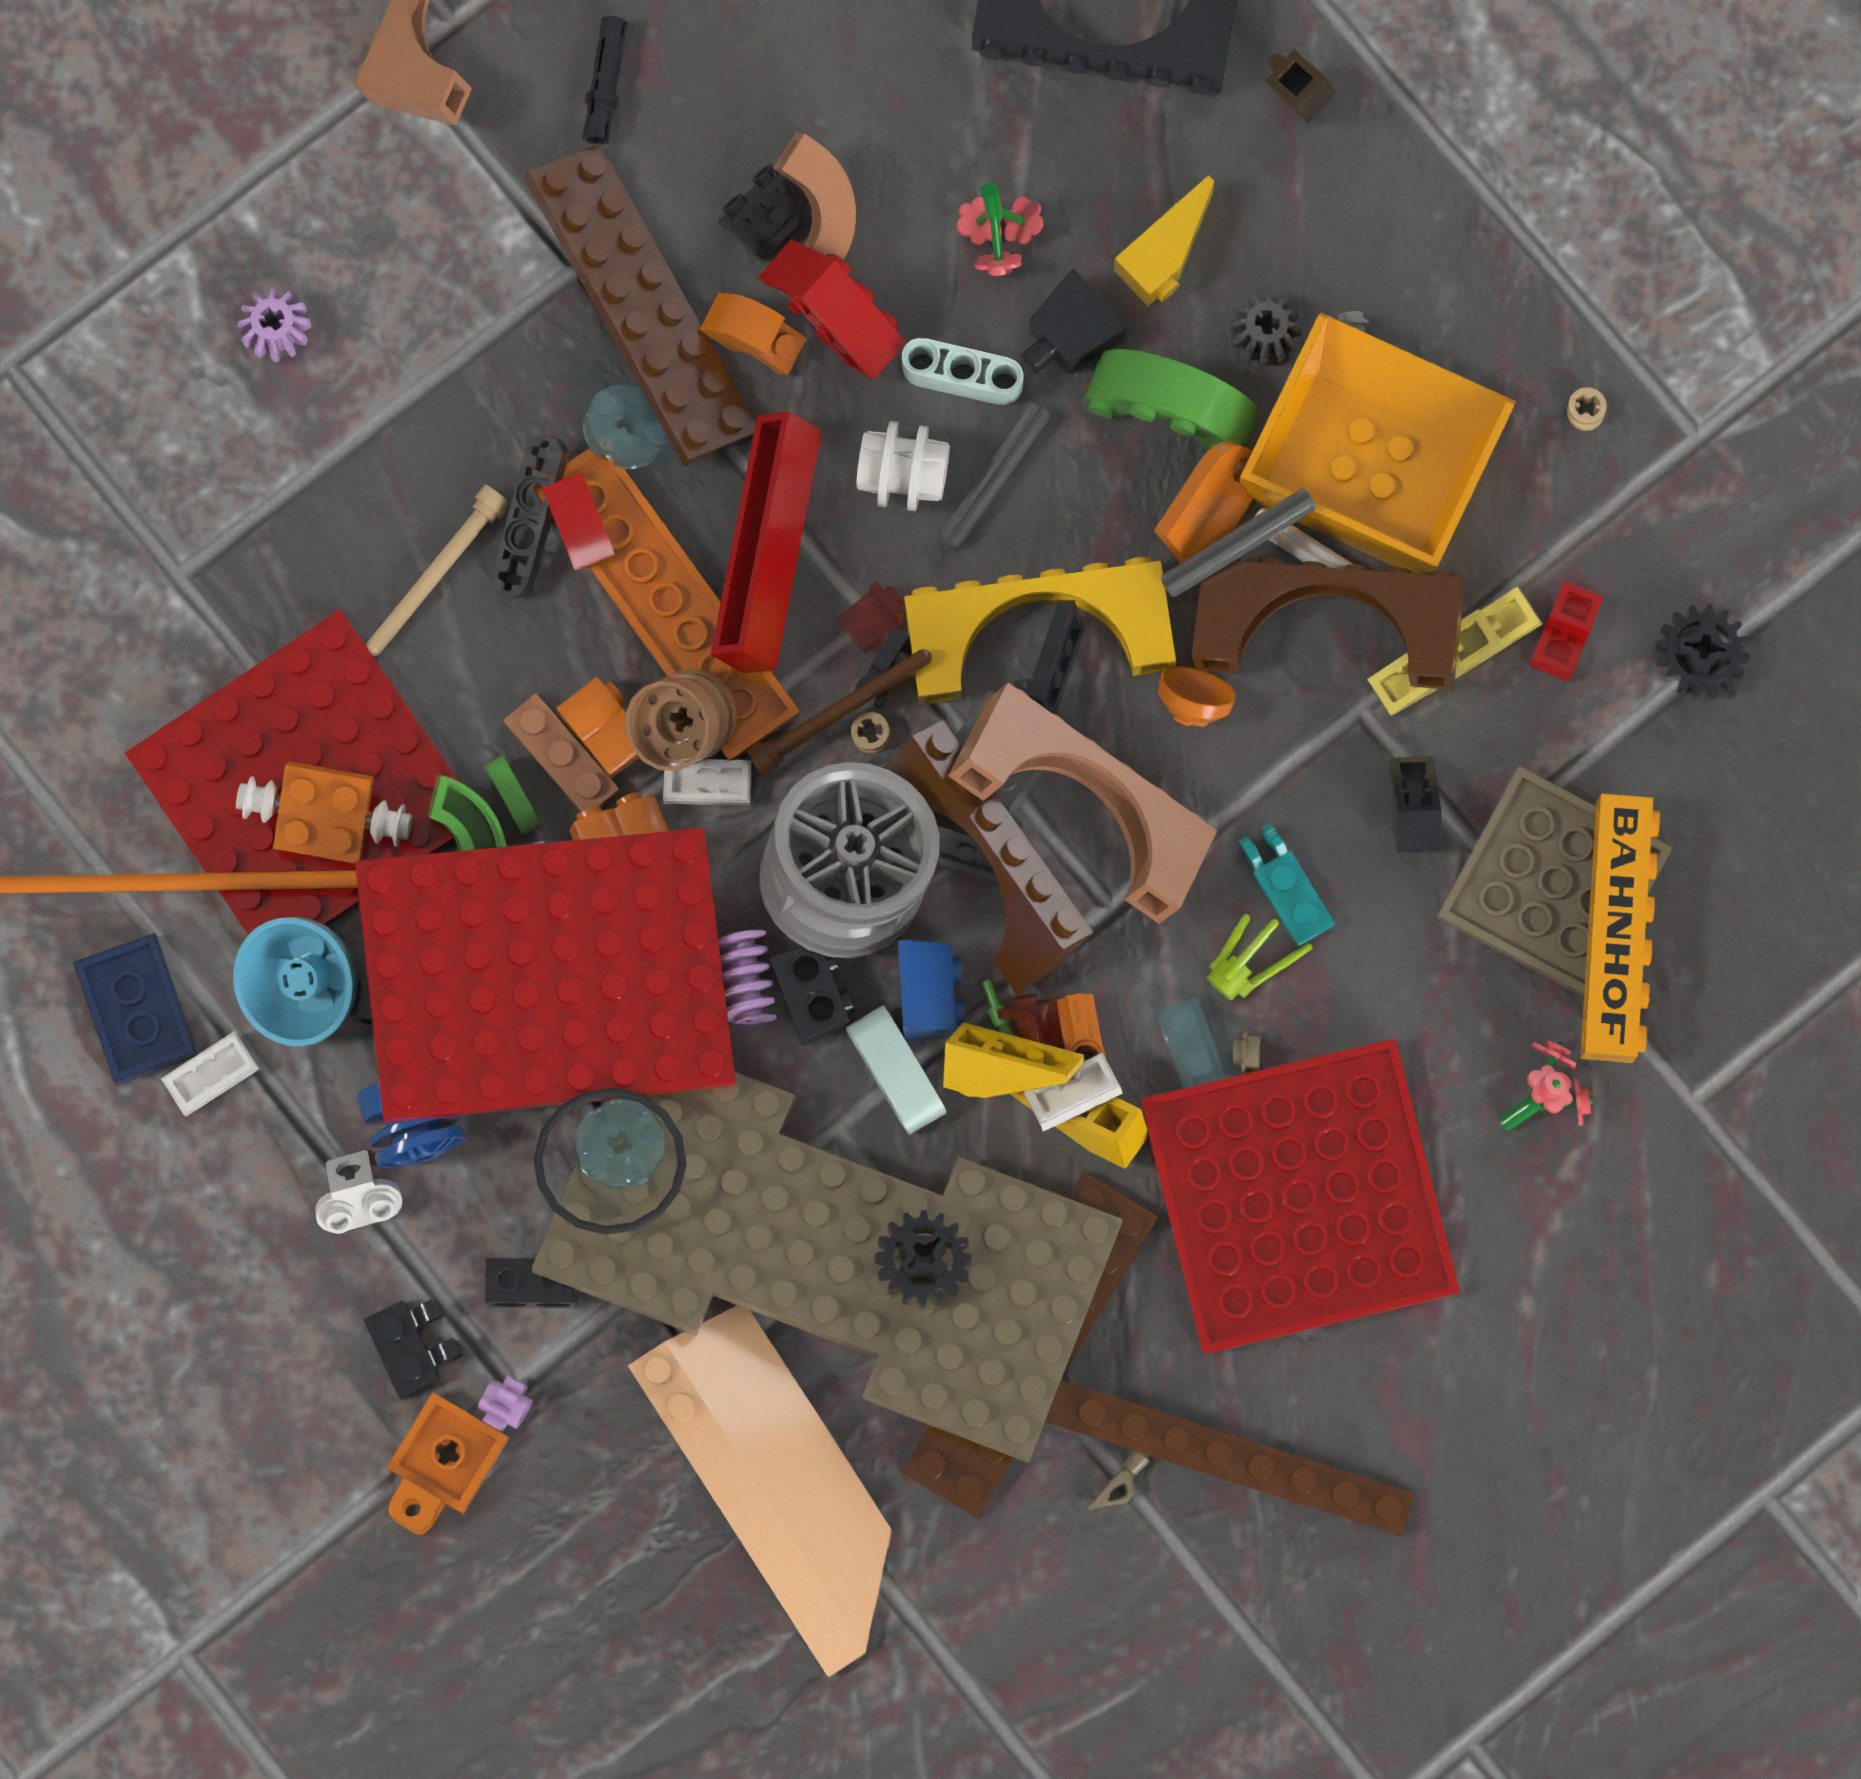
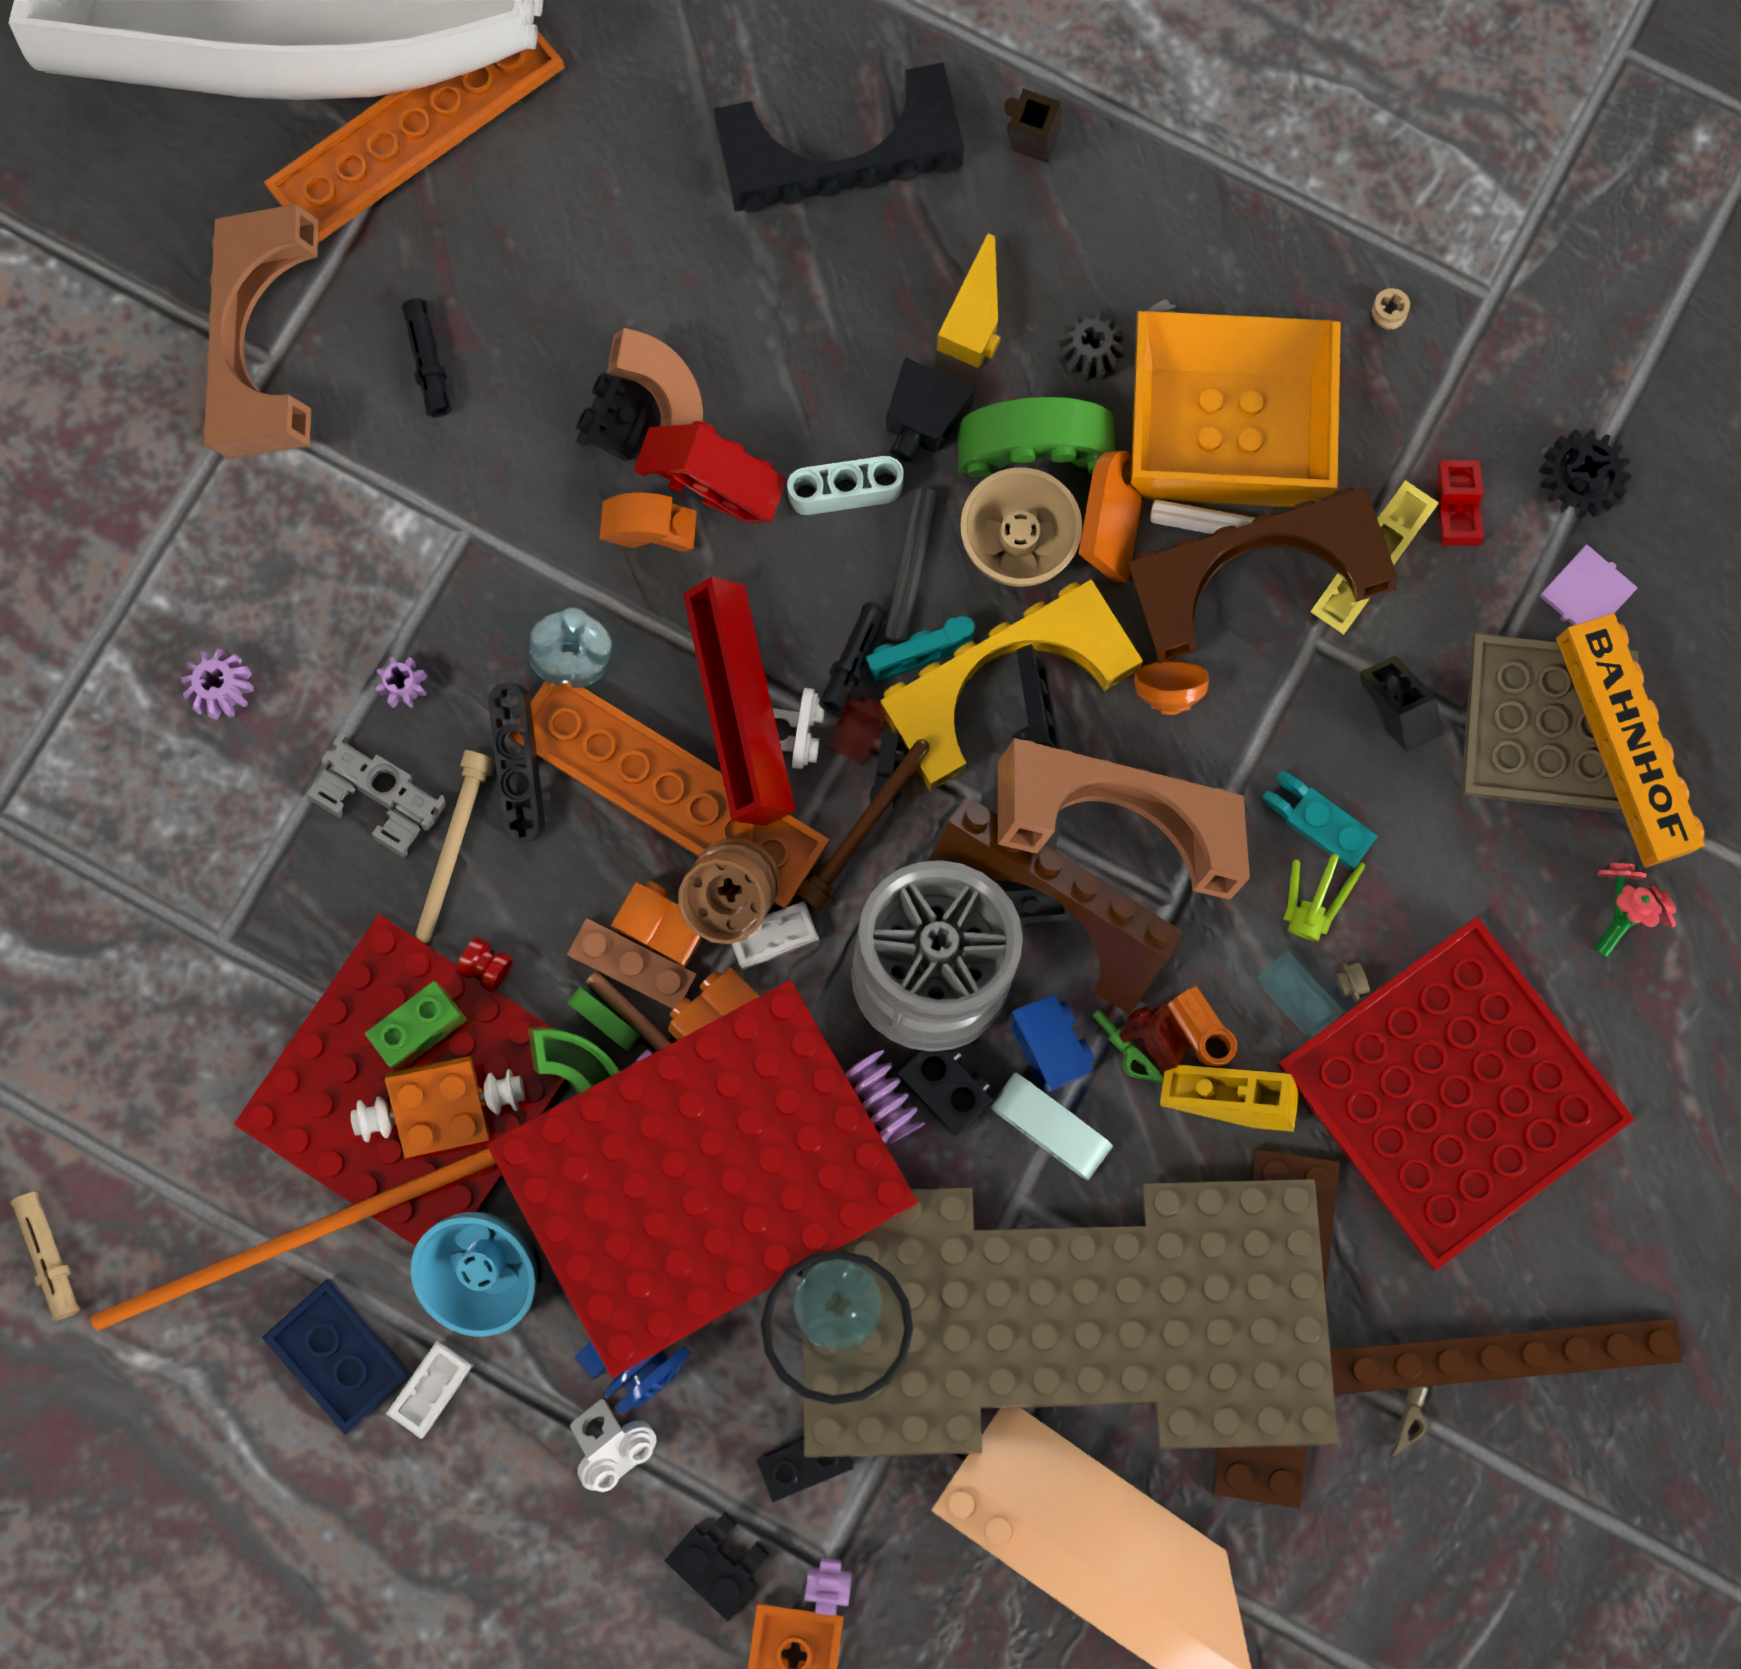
camera: 25 degrees left, 0 degrees up
(333, 729) = (416, 1026): none -> bright green brick
(413, 514) = (411, 803): none -> light grey piece
(419, 694) = (480, 961): none -> red wheel
(441, 388) = (412, 682): none -> lavender gear
(537, 795) = (627, 1011): none -> nougat bar
(578, 521) = (562, 749): red slope -> none
(641, 304) = (539, 538): reddish brown plate -> none
(812, 608) = (802, 745): none -> white bracket
(879, 723) = (901, 820): tan bush -> none
(883, 555) = (847, 671): none -> black pin
(902, 466) = (830, 586): white piece -> none
(934, 1273) = (1179, 1304): black gear -> none
(966, 564) = (920, 650): none -> teal hinge
(981, 223) = (809, 348): coral plant -> none
(996, 1063) = (1147, 1084): yellow slope -> none
(1086, 1089) = (1223, 1083): white plate -> none
(1104, 460) = (1034, 511): none -> tan piece
(1238, 542) = (1155, 534): dark grey axle -> none
(1657, 768) = (1588, 588): none -> lavender piece

